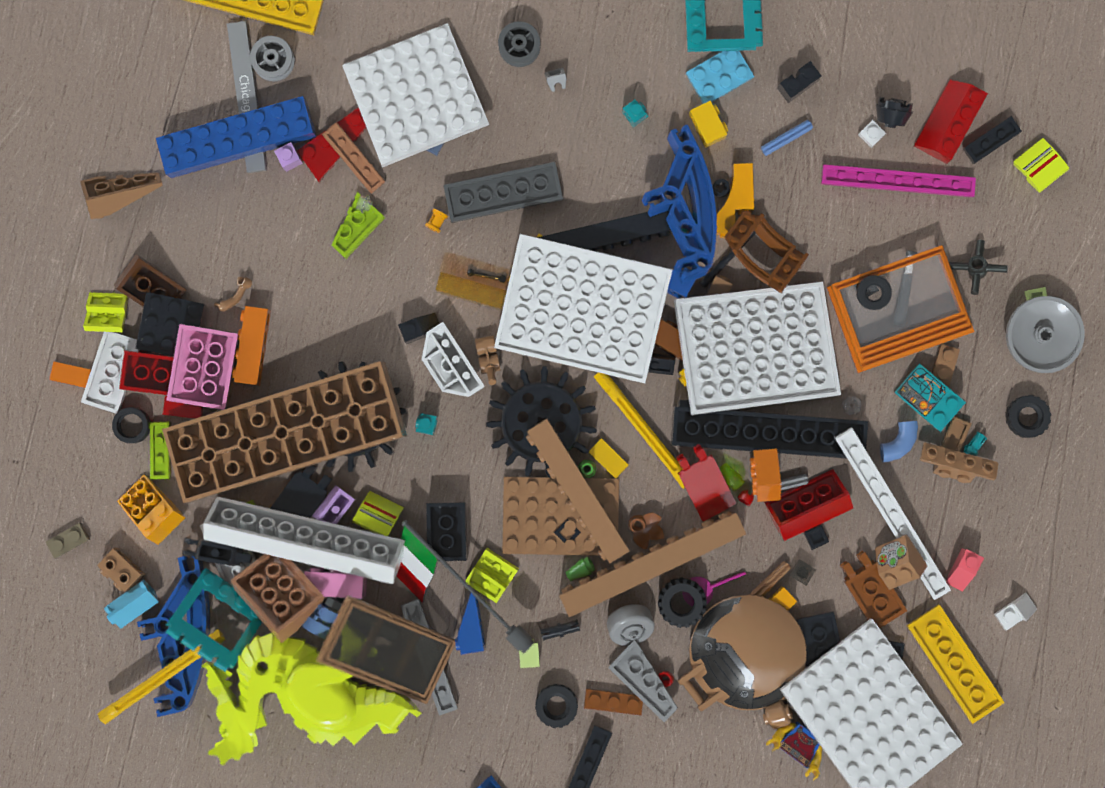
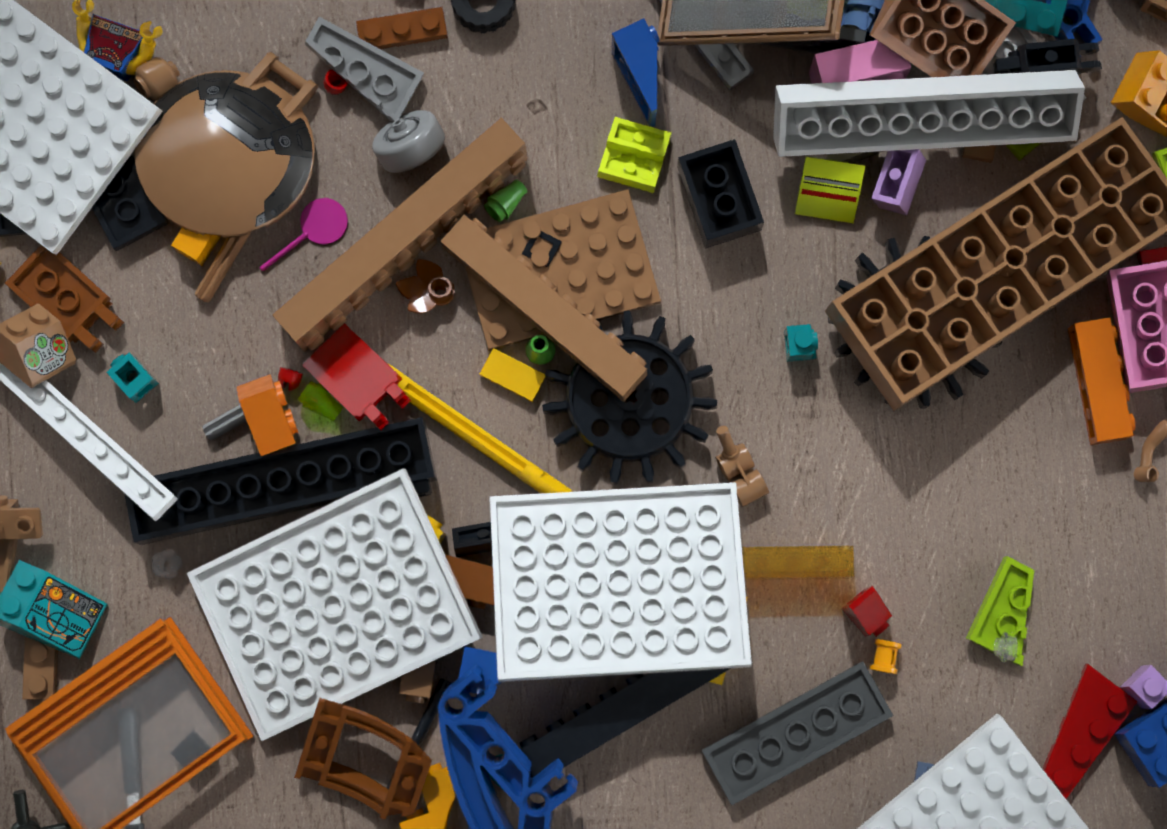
camera: 160 degrees right, 5 degrees down
(302, 494) = (951, 182): black tile -> none
(353, 157) = (1046, 716): nougat tile -> none
(418, 327) = (857, 484): black slope -> none
(419, 567) = (744, 126): flag -> none
(438, 249) = (868, 612): none -> red slope
(449, 364) = (794, 441): white wedge -> none
(502, 278) = (756, 598): black hinge -> none
(530, 657) = (544, 58): yellowish green brick -> none
(560, 630) = (510, 105): black pin -> none
(675, 618) = (337, 172): black tyre -> none
(802, 572) = (175, 293): clear smoke plate -> none
(809, 505) = (190, 394): red slope -> none
(816, 537) = (169, 351): black tile -> none
(850, 531) = (120, 371): none -> teal brick
(880, 303) = (157, 737): black tyre -> none
(901, 444) = (74, 527): medium blue cylinder -> none

